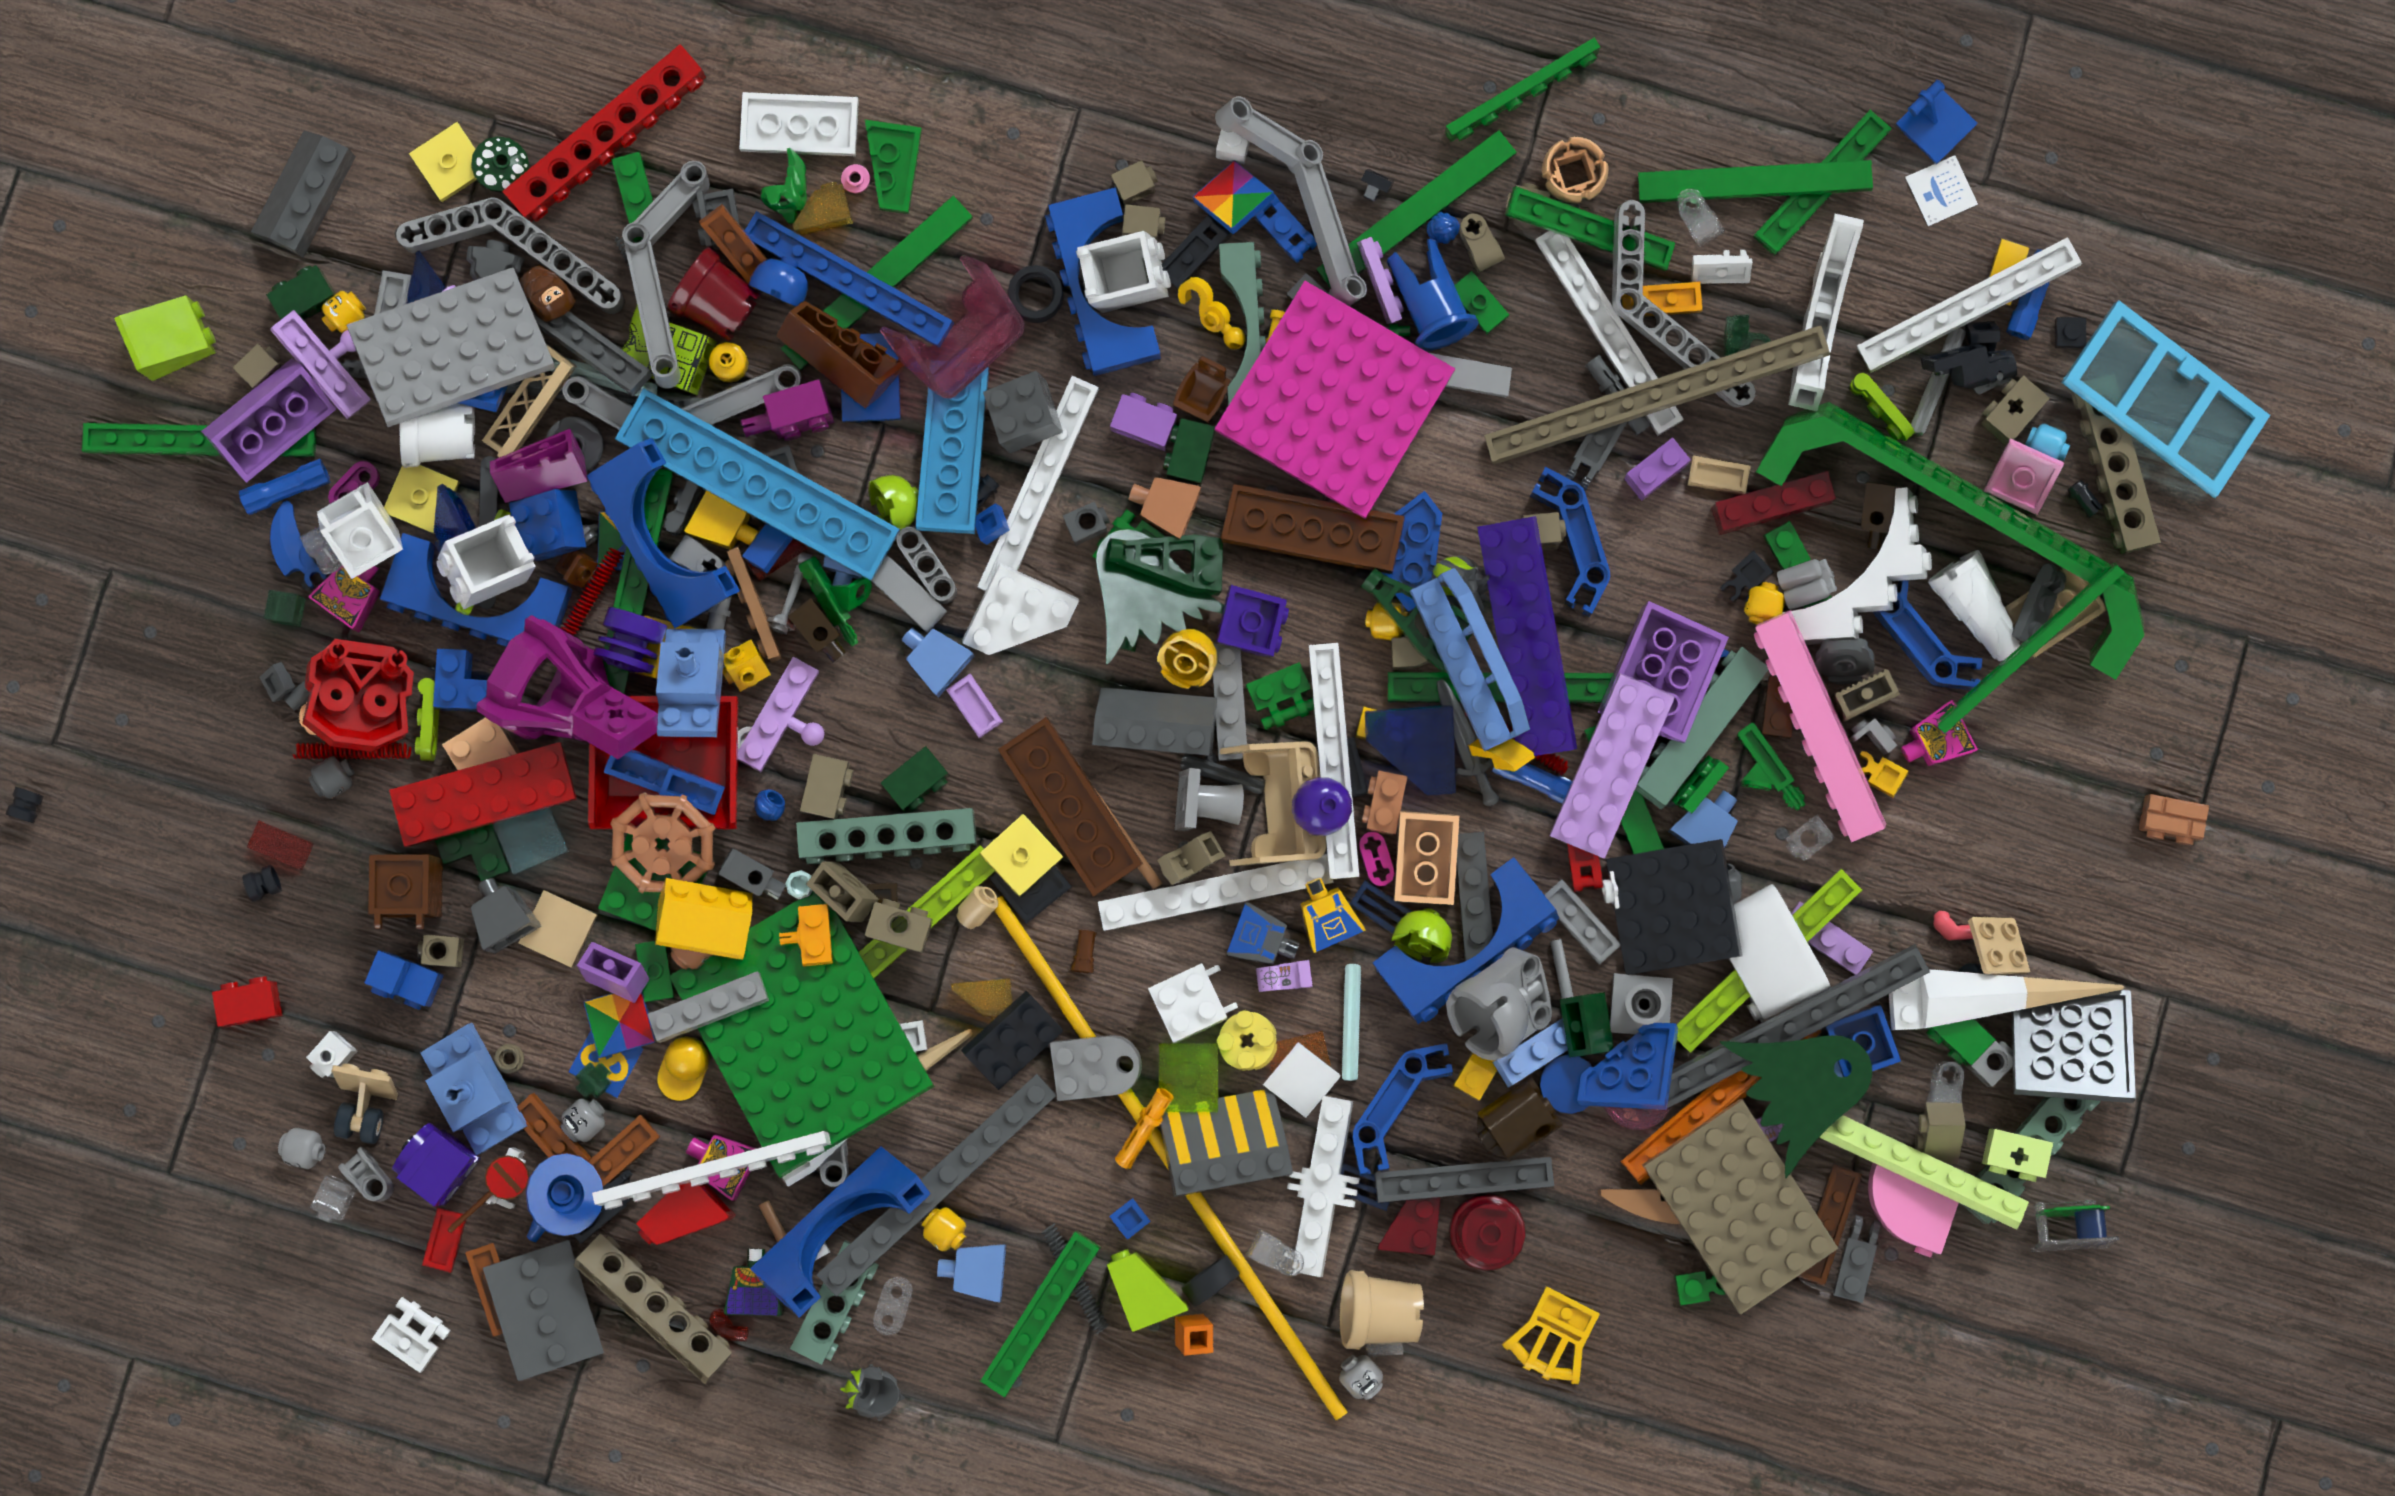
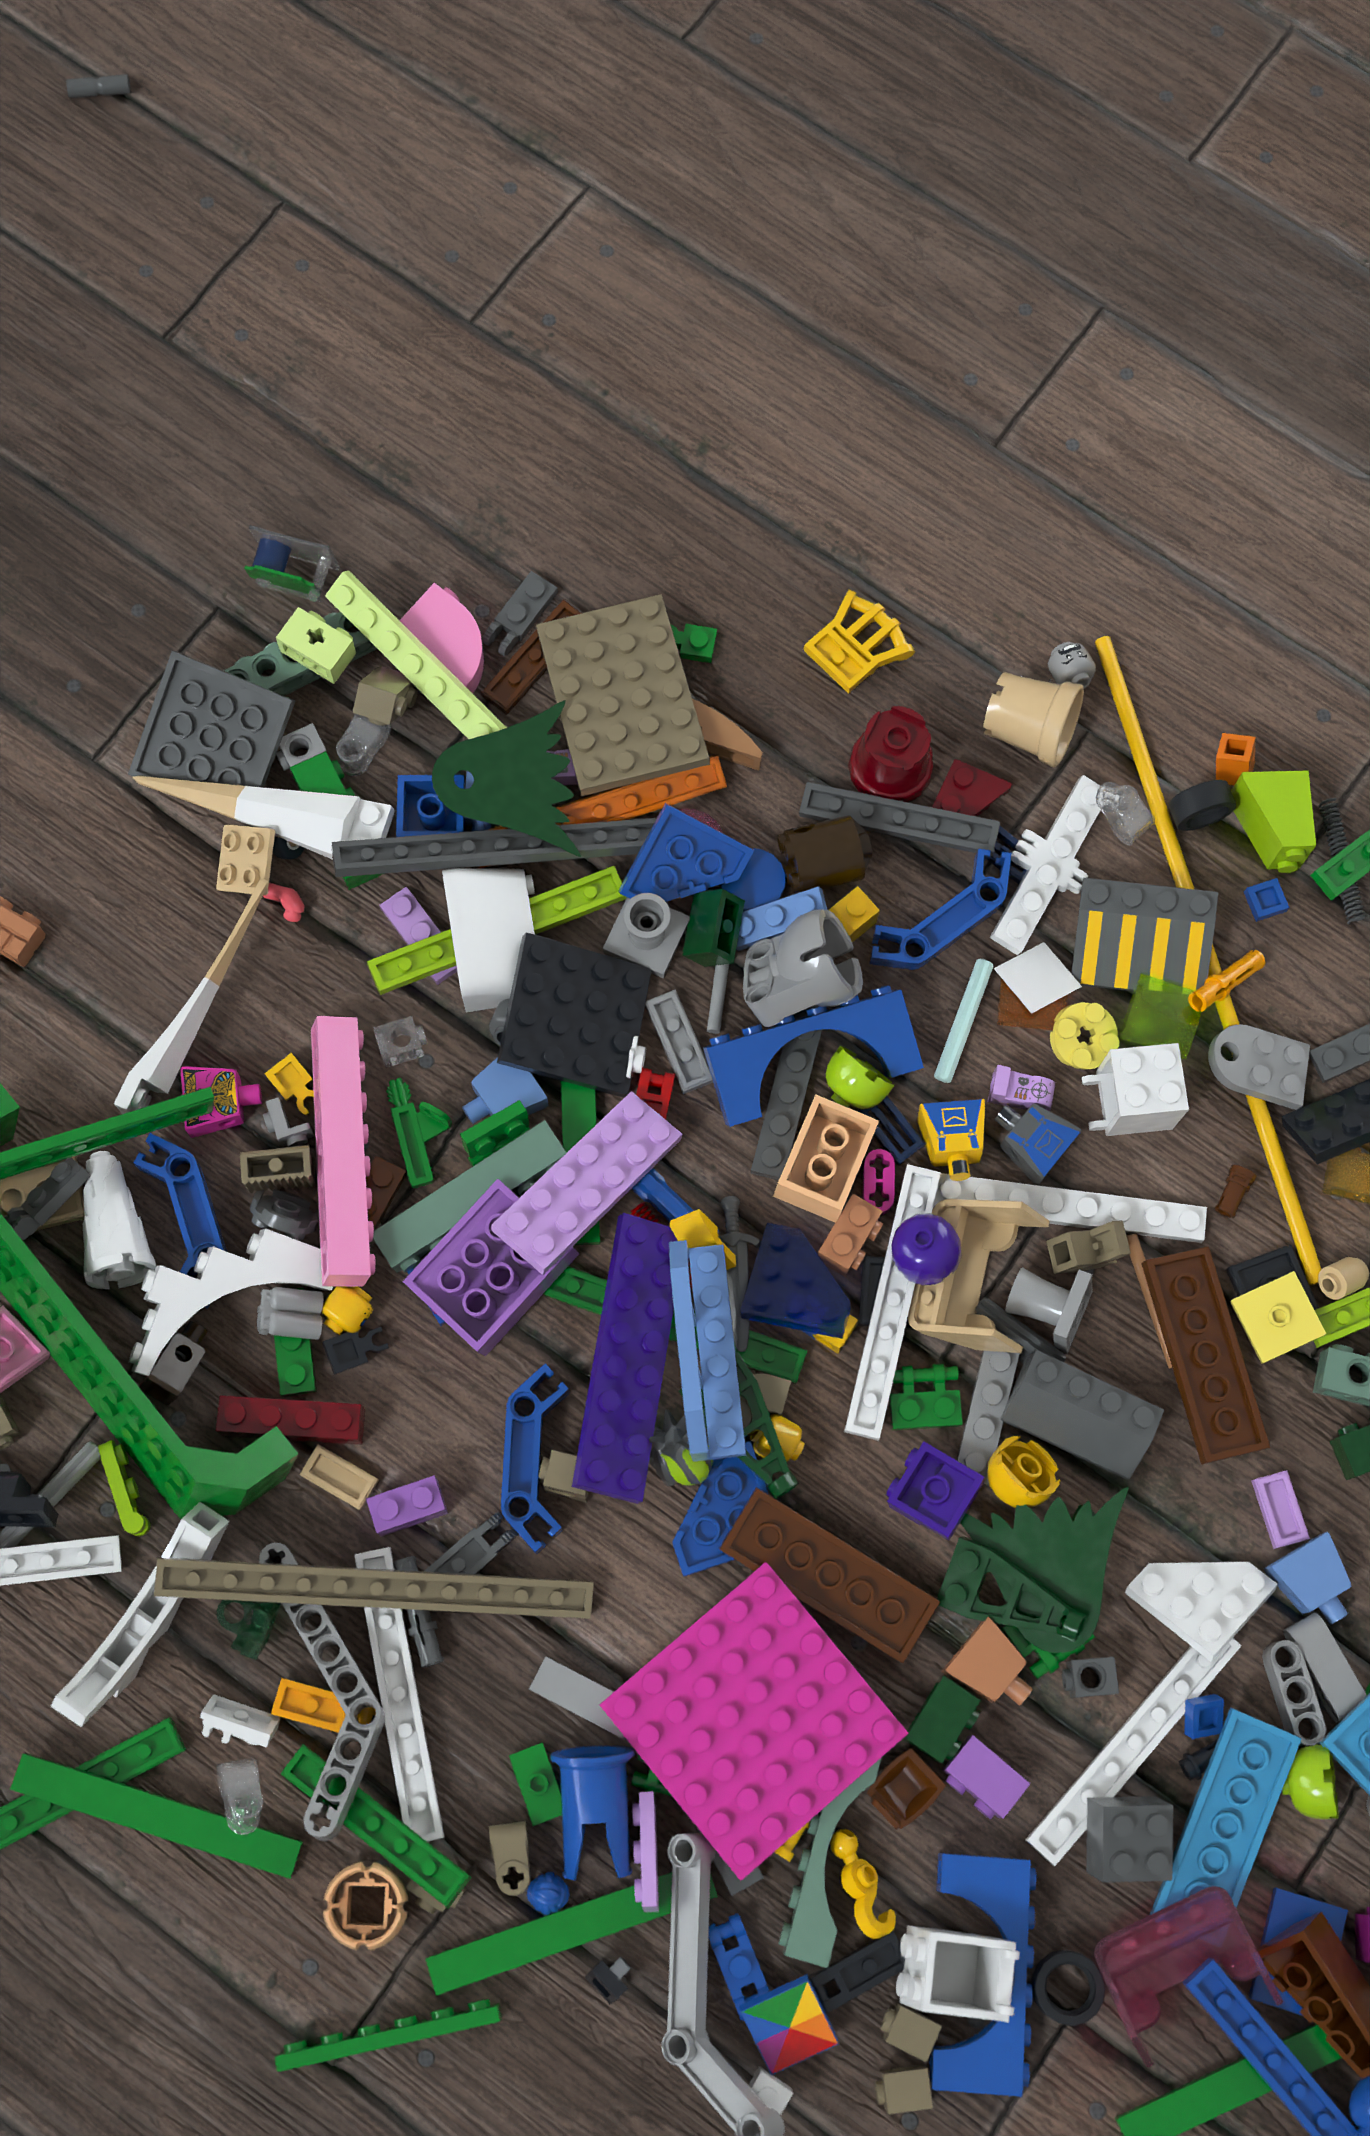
camera: 170 degrees left, 10 degrees down
(1991, 750) = (163, 1060): none -> white plate

